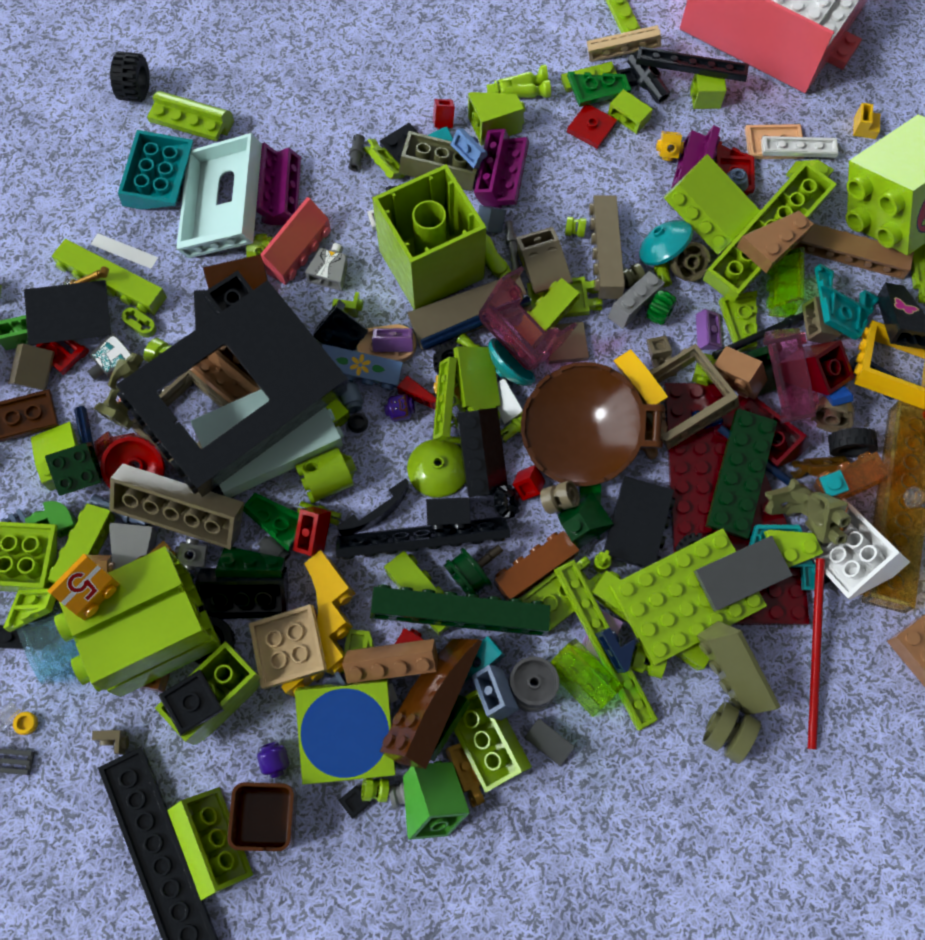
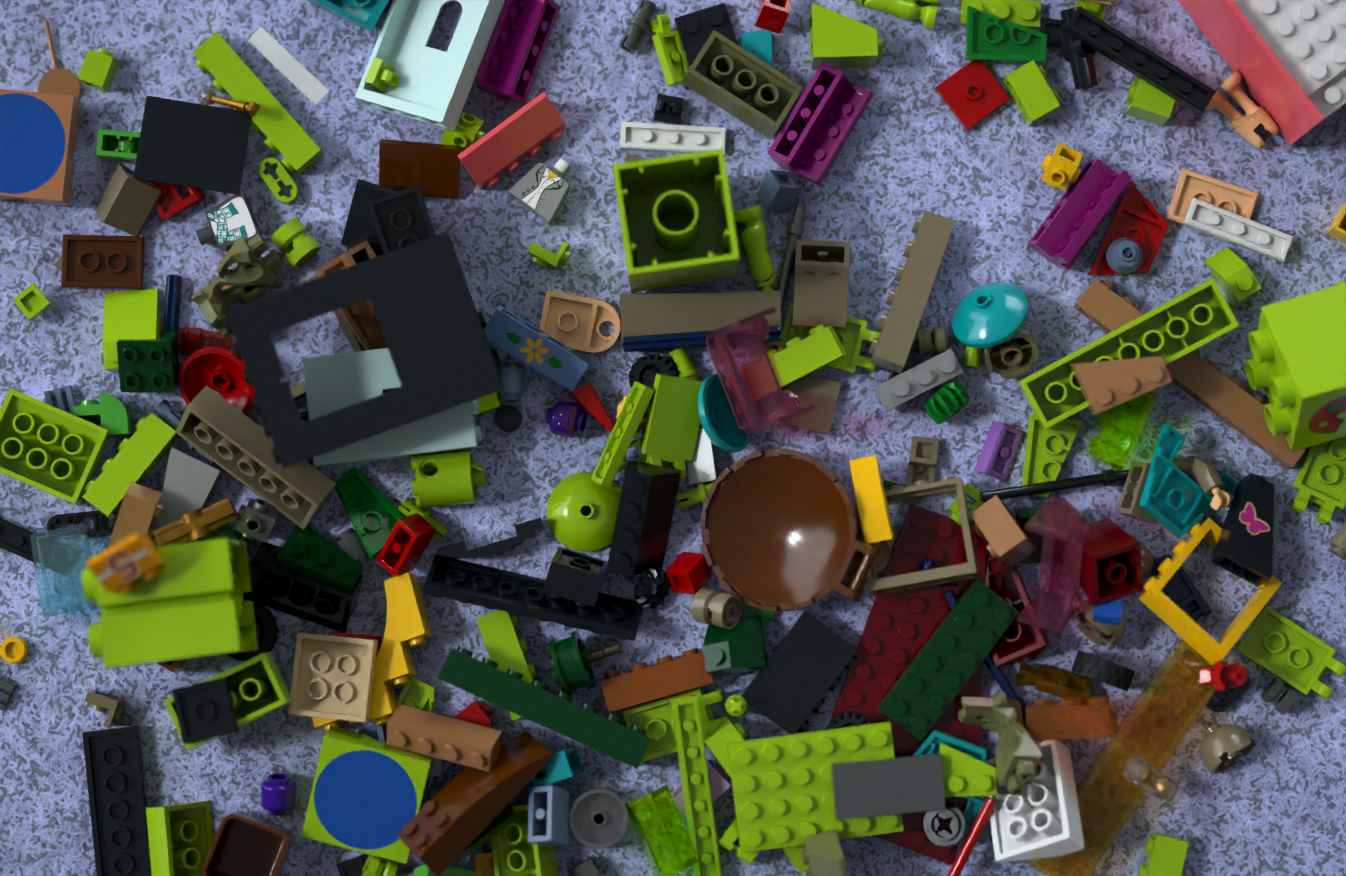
camera: 25 degrees right, 15 degrees up
(28, 606) = (53, 519): lime wing -> none
(190, 229) = (381, 75): none -> lime tile
(340, 329) = (523, 288): black bracket -> none
(392, 340) = (589, 322): medium lavender slope -> none
(468, 148) = (780, 84): medium blue tile -> none
(571, 226) = (879, 241): lime wheel -> none
(618, 654) = (707, 825): dark blue slope -> none
(712, 204) = (1067, 288): lime slope -> none
(775, 81) = (1245, 123): none -> light nougat piece
(798, 601) = (933, 821): none -> black gear
(834, 483) = (1042, 722): teal plate -> none
(862, 296) = (1207, 478): none -> dark tan arm

